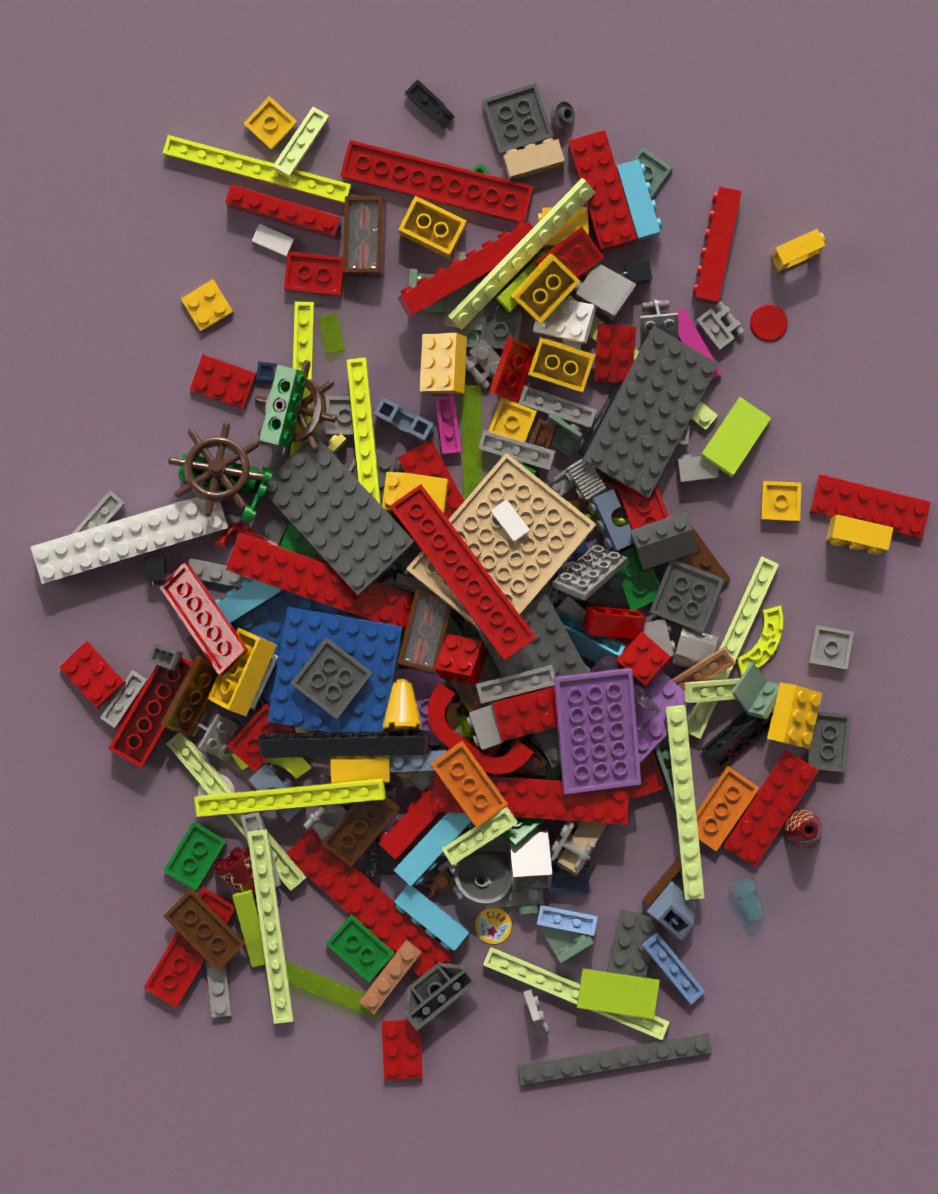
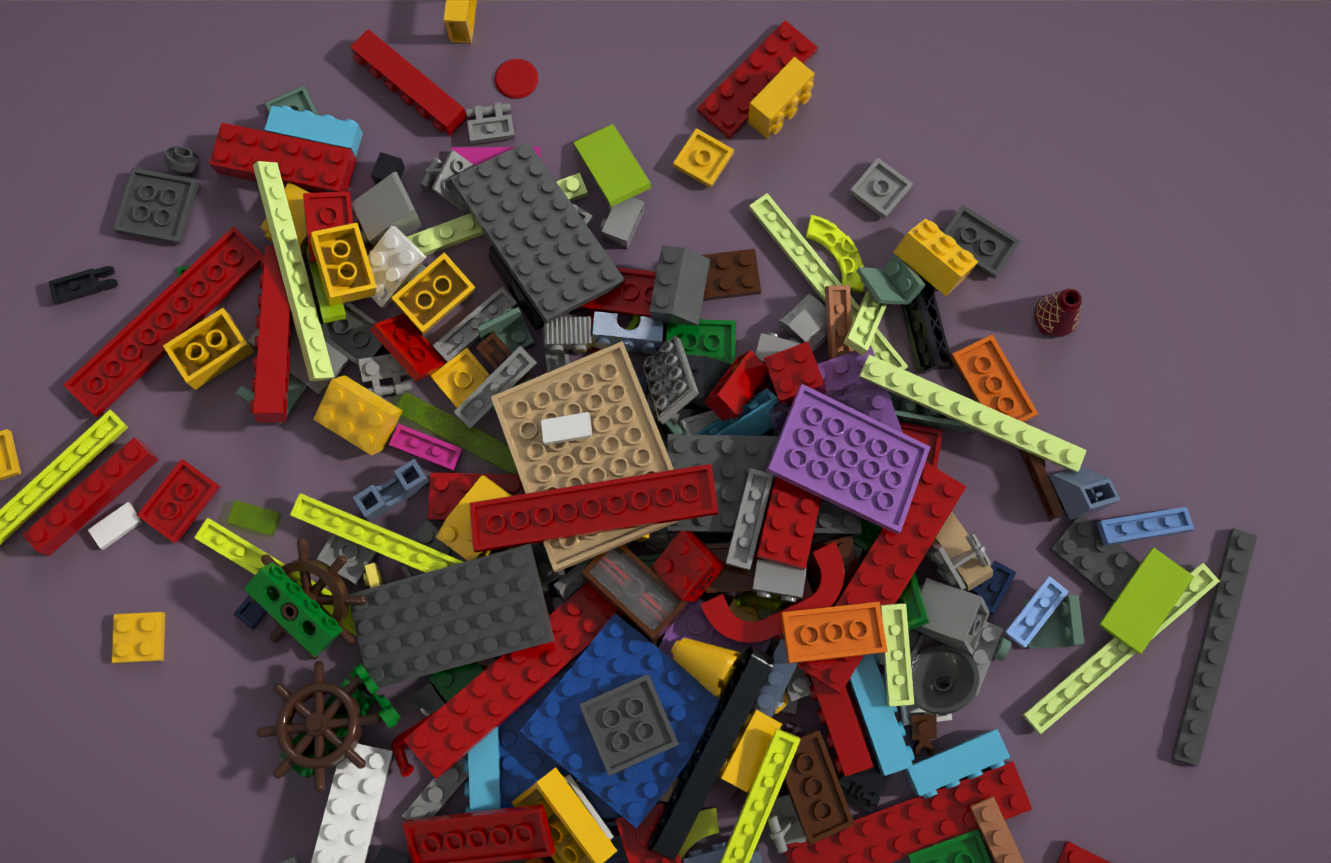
camera: 55 degrees left, 10 degrees down
(223, 381) = (231, 666): red plate -> none
(301, 142) = (31, 437): yellowish green plate -> none
(364, 236) = (172, 424): brick -> none
(436, 991) = (1048, 804): dark grey wedge -> none
(473, 338) = (351, 371): sand green tile -> none
(493, 925) = (999, 699): sticker -> none
(533, 159) = (207, 211): tan brick -> none
(538, 1017) = (1132, 703): light grey plate -> none
(614, 352) = (455, 234): red plate -> none
(686, 595) = (749, 298): dark grey plate -> none
(748, 898) = (1104, 407): clear light blue plant -> none
(770, 808) = (1019, 334): red plate -> none

